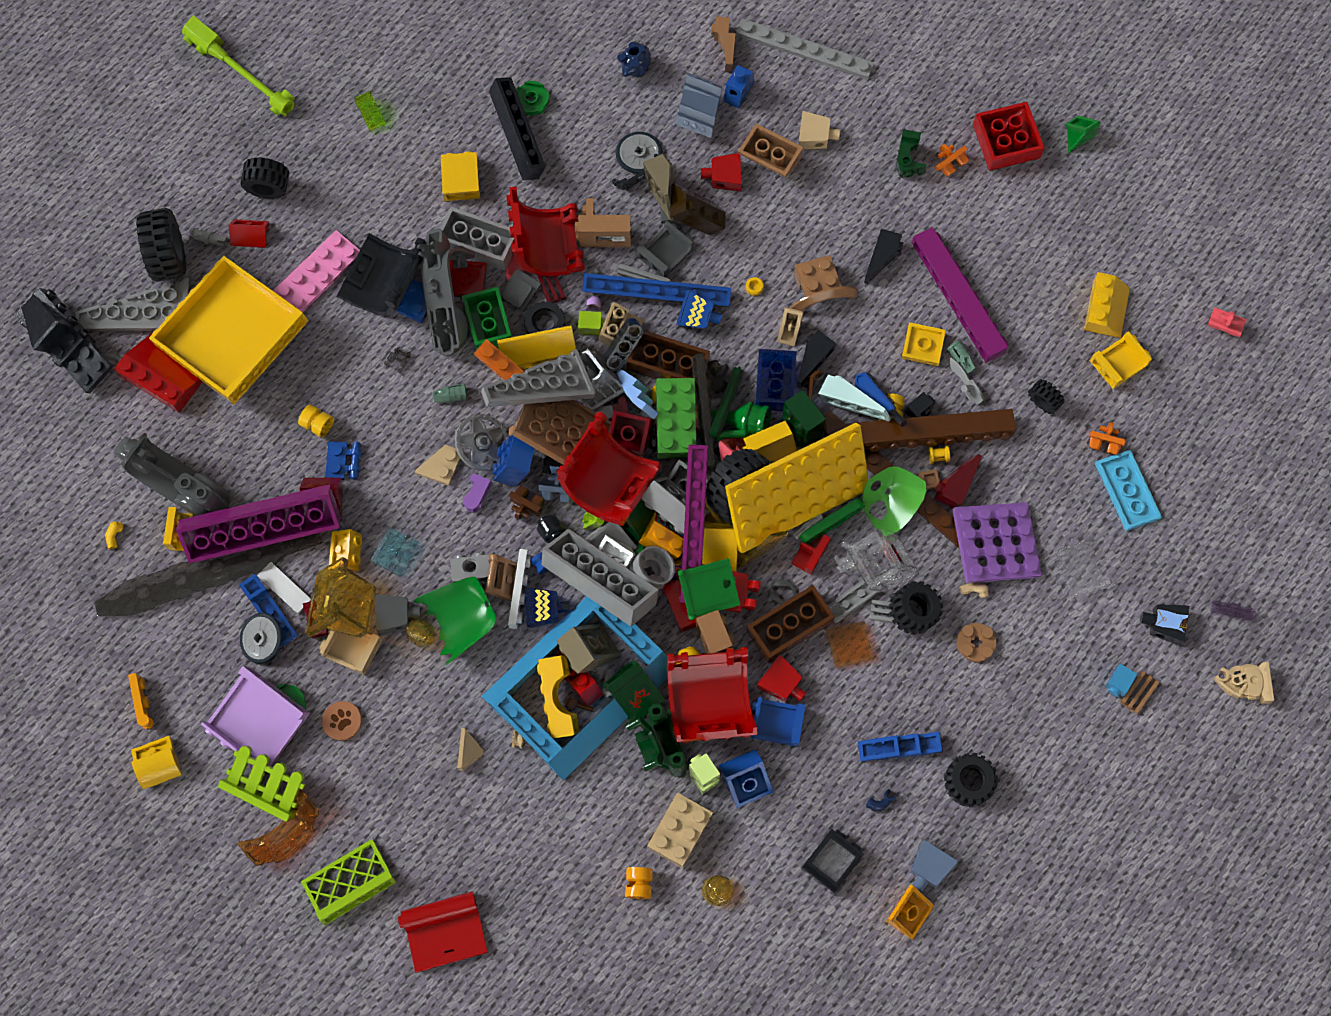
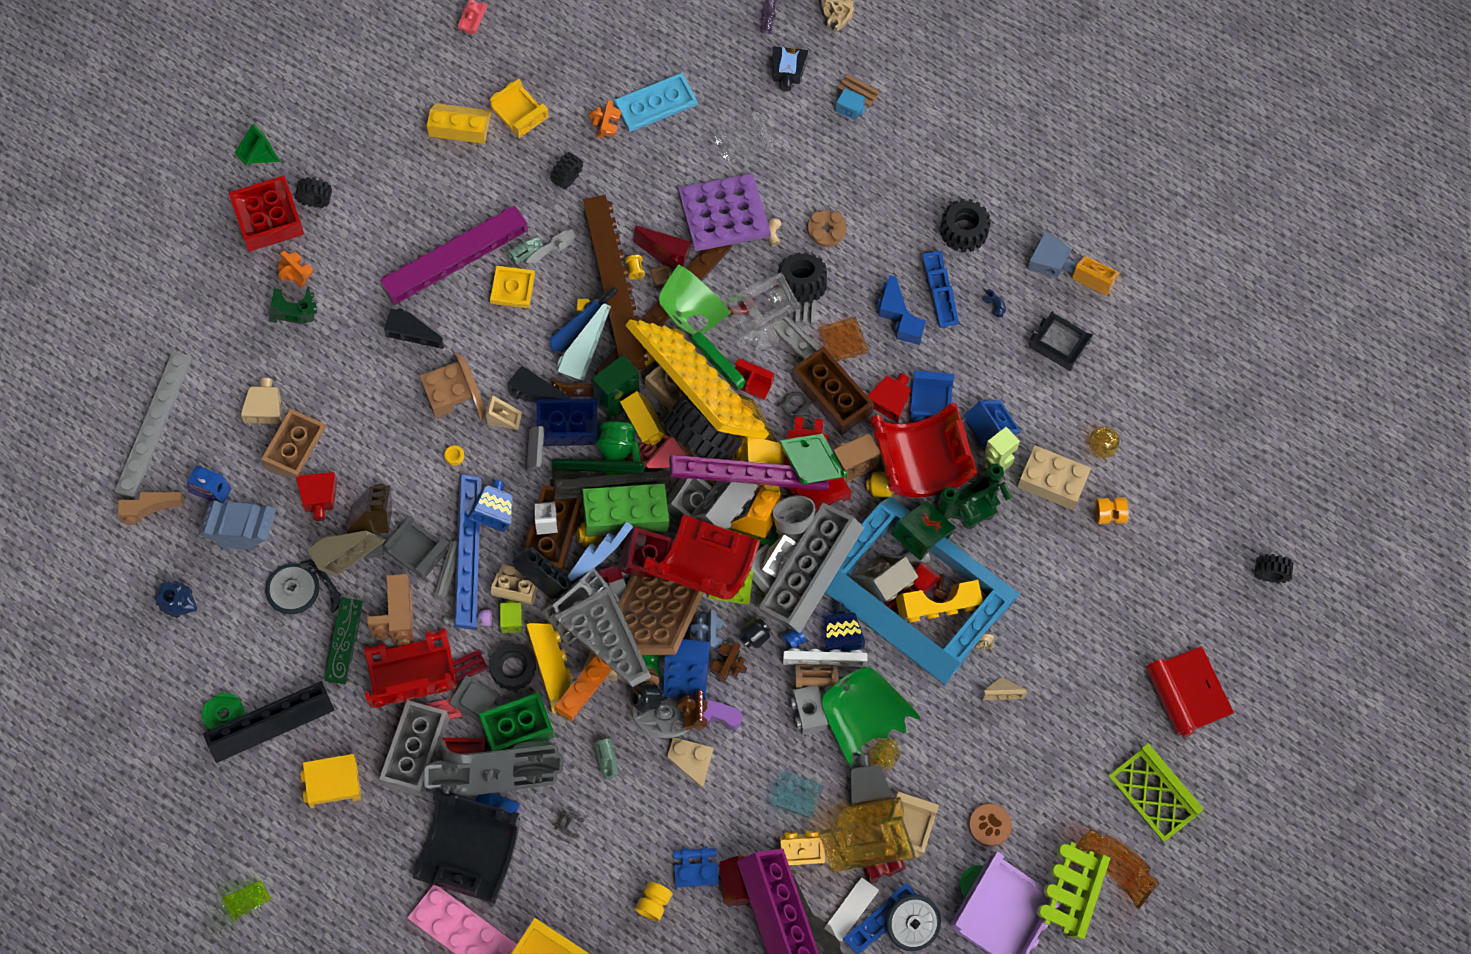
camera: 100 degrees left, 5 degrees down
(478, 461) = (693, 709): none -> reddish brown hips
(496, 425) = (646, 696): none -> black head
(584, 188) = (343, 640): none -> dark green slope
(674, 348) = (545, 518): none -> white slope
(746, 348) = (535, 449): none -> light grey slope
(882, 695) = (893, 307): none -> blue arch
(920, 406) = (585, 285): black brick -> none
(1028, 174) = (313, 192): none -> black tyre

